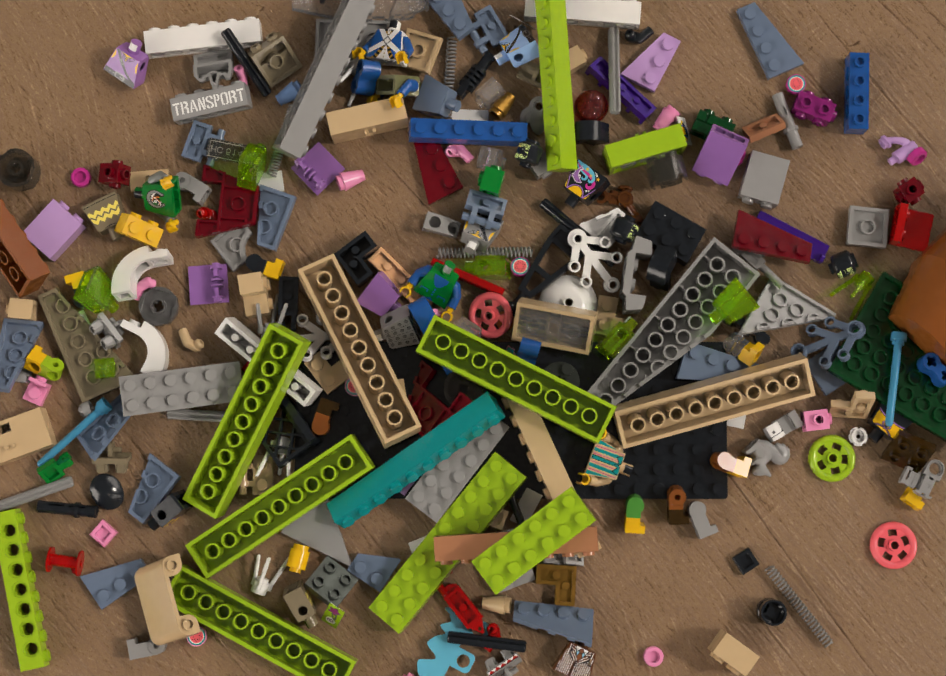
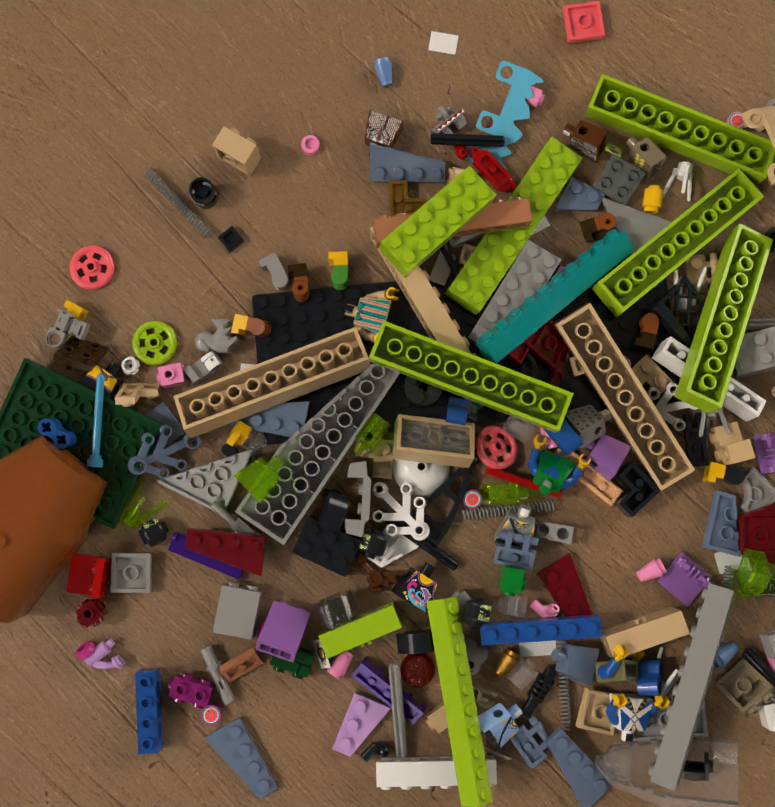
camera: 175 degrees right, 0 degrees up
(353, 536) = (597, 224): none -> leg
(354, 624) = (587, 139): none -> reddish brown torso

